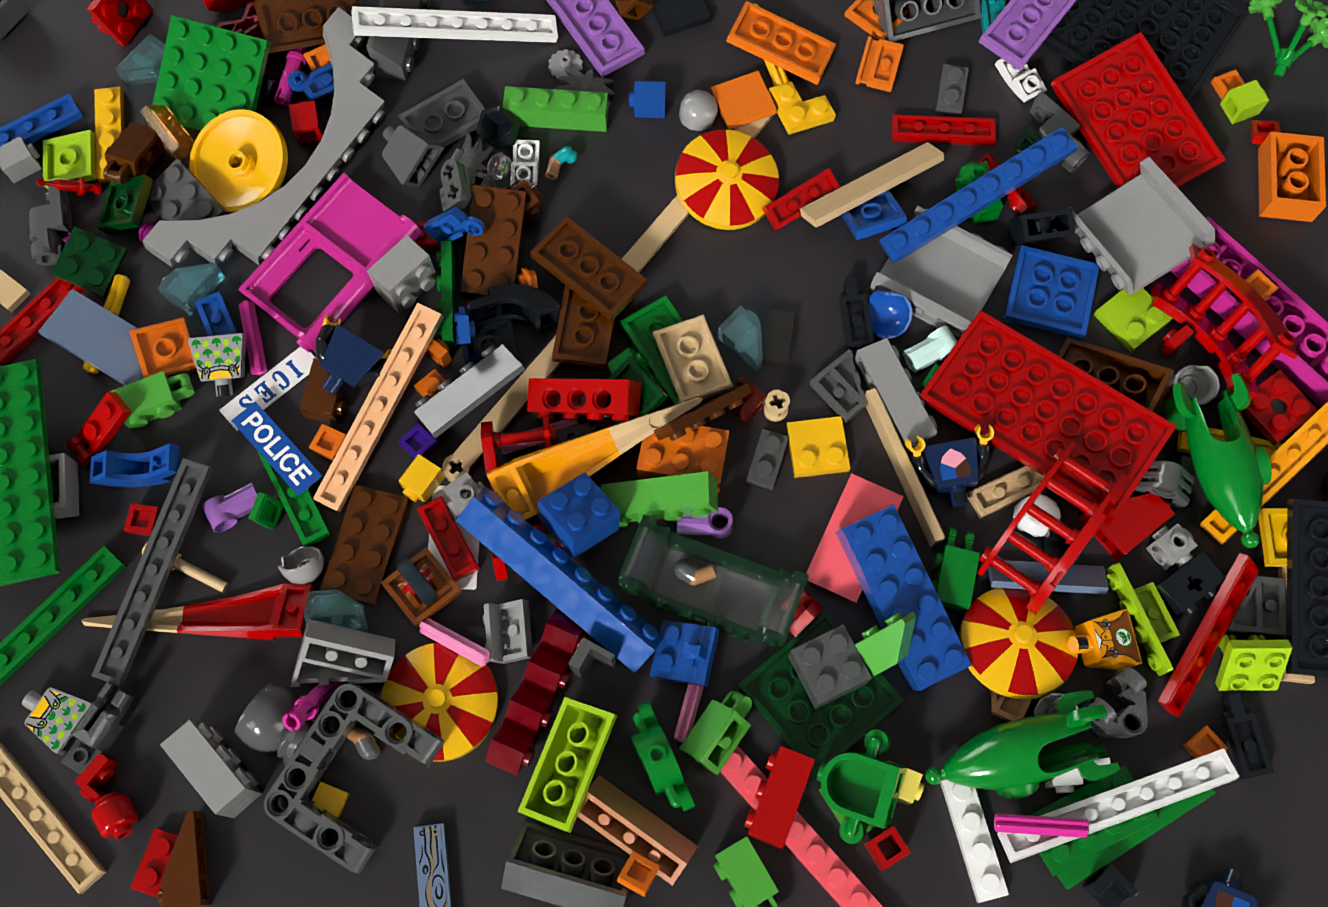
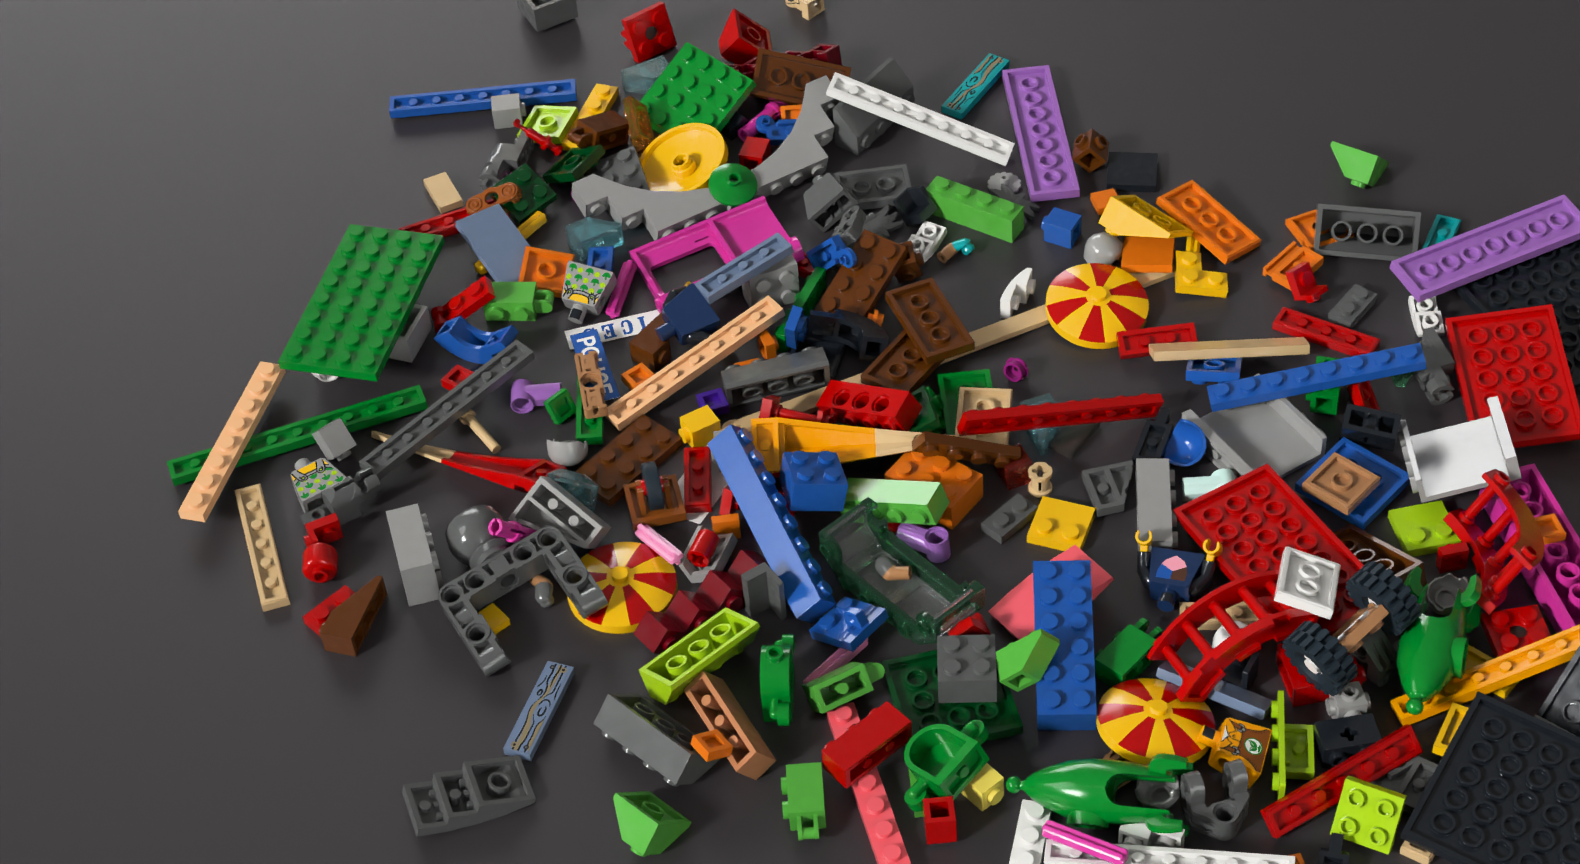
camera: 30 degrees right, 25 degrees down
(49, 656) = (334, 440): none -> light grey brick
(74, 271) = (506, 193): none -> dark orange piece
(296, 491) = (592, 397): none -> medium nougat piece
(306, 184) = (730, 192): none -> green dish
(381, 285) = (744, 268): none -> sand blue plate
(498, 166) = (900, 233): clear tile -> none
(503, 631) = (703, 548): none -> red piece
(508, 588) = (726, 524): none -> orange tile
(646, 192) = (1017, 292): none -> white slope
(672, 51) = (1101, 198): none -> orange tile
(688, 284) = (1015, 369): none -> magenta plate
(726, 69) = (1135, 217): none -> yellow slope
(760, 336) = (1059, 414): none -> red plate
(901, 83) = (1303, 283): none -> red bracket
(904, 469) = (1129, 559): tan tile -> none
(1050, 303) = (1341, 483): none -> medium nougat plate
(1102, 448) = (1307, 582): none -> white tile
(1172, 486) = (1382, 604): none -> black plate

